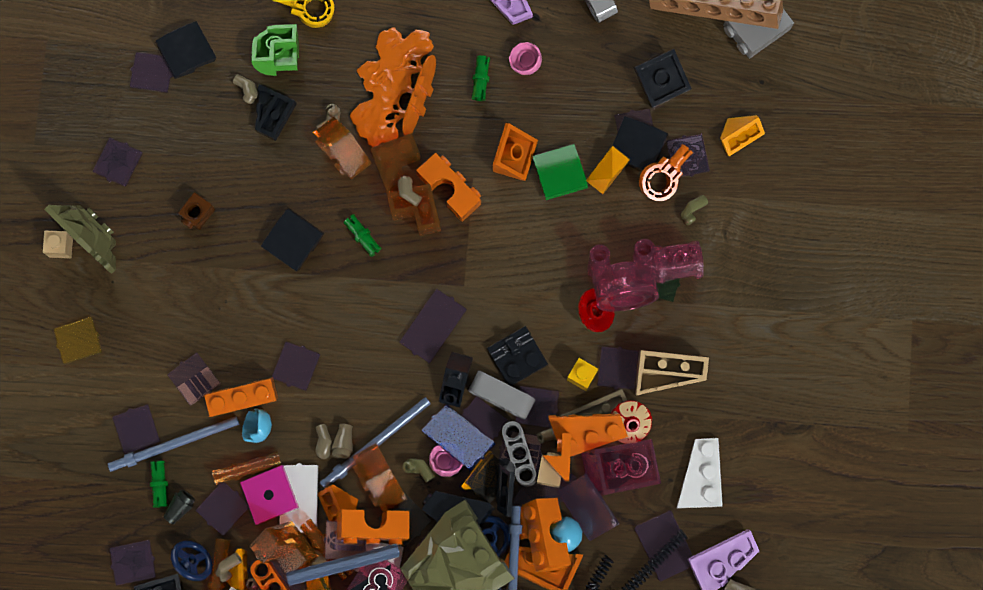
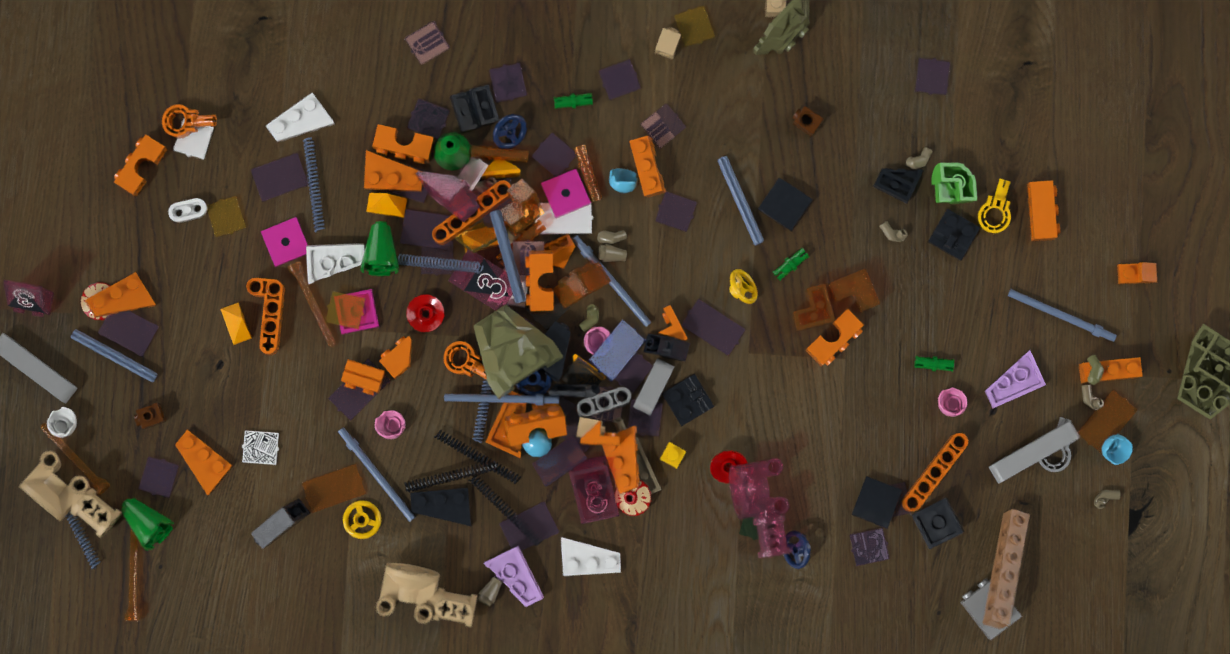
camera: 85 degrees right, 5 degrees up
(95, 370) = (668, 42): none -> tan brick
(117, 162) = (851, 51): clear purple piece -> none
(132, 458) = (594, 77): sand blue bar -> none
(179, 506) = (554, 118): pearl dark grey cone -> none
(185, 50) = (952, 105): black slope -> none
(227, 564) = (506, 160): dark tan arm -> none
(285, 291) = (740, 200): none -> sand blue axle
(334, 53) = (953, 234): none -> black hinge
(342, 146) = (867, 242): clear orange brick -> none
(387, 293) = (740, 287): none -> yellow piece
(389, 80) = (930, 283): orange plant -> none
(406, 191) = (826, 300): dark tan arm -> none
(435, 368) = (675, 329): none -> orange slope
(514, 153) = (866, 394): orange slope -> none
(560, 172) = (851, 434): green slope -> none
(607, 89) = (943, 468): none -> orange beam
(607, 170) = (853, 476): light orange slope -> none
(617, 368) = (680, 486): clear purple piece -> none
(668, 370) = (677, 528): tan wedge -> none
(672, 175) = (856, 524): orange pin -> none
(691, 207) = (823, 550): olive arm -> none
(692, 232) = (799, 549): none -> dark blue piece
(740, 132) = (891, 592): light orange slope -> none

